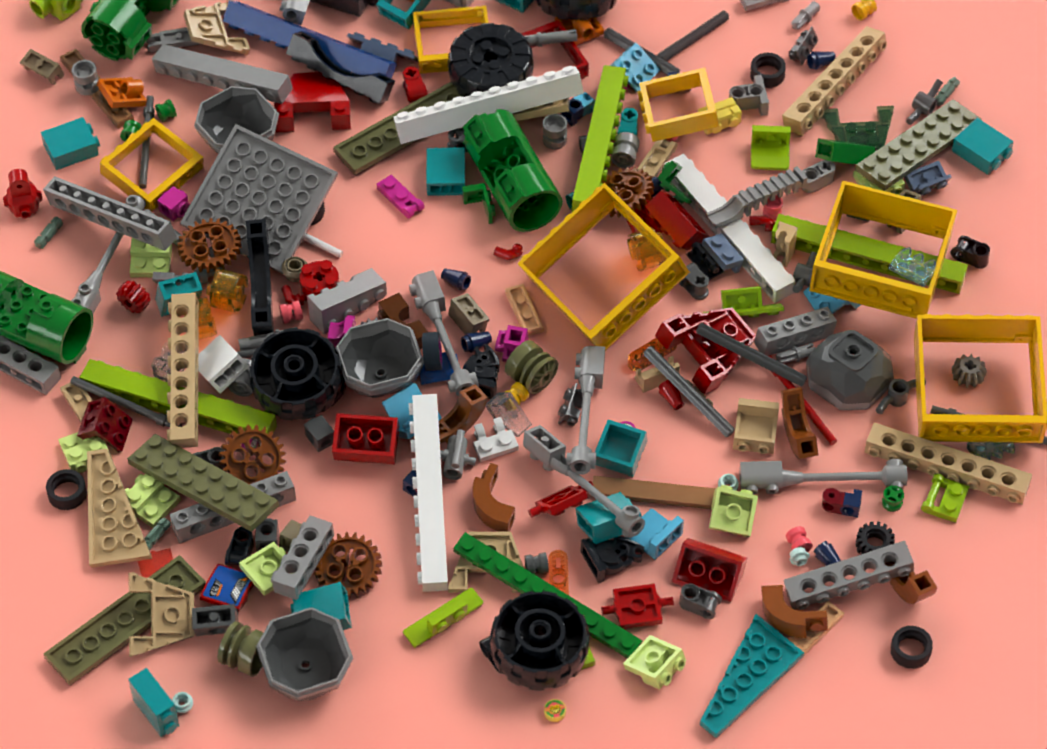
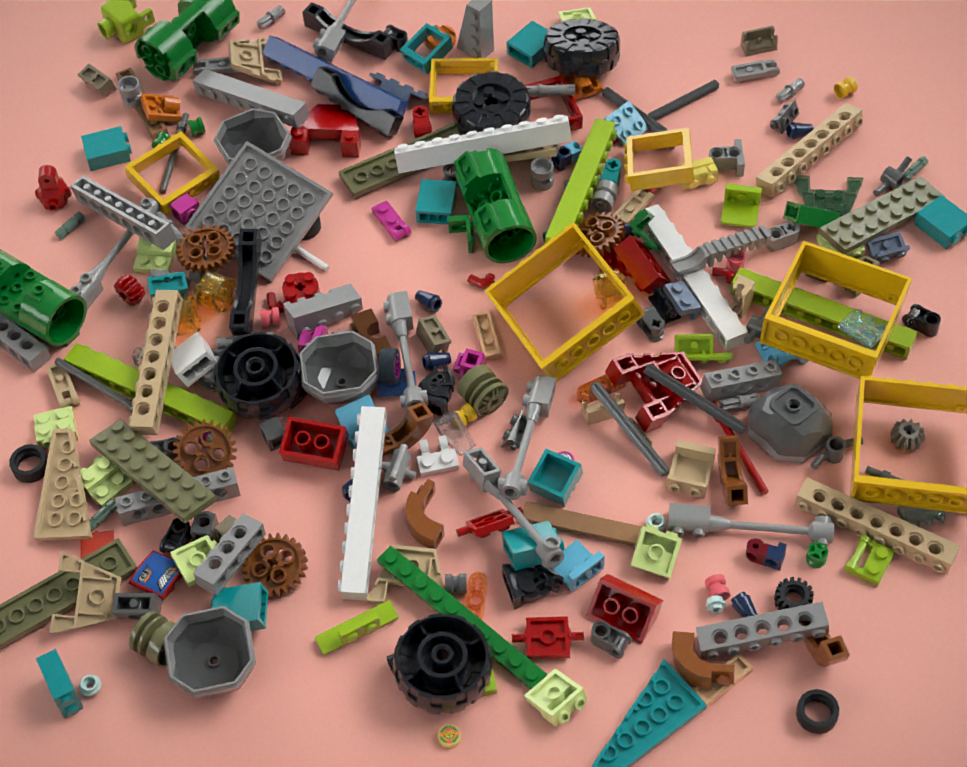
camera: 10 degrees right, 0 degrees up
(107, 422) = (79, 405): dark red bracket -> none
(292, 268) = (278, 275): dark tan cone -> none
(671, 394) = (613, 430): red cone -> none
(769, 59) = (753, 127): black tyre -> none

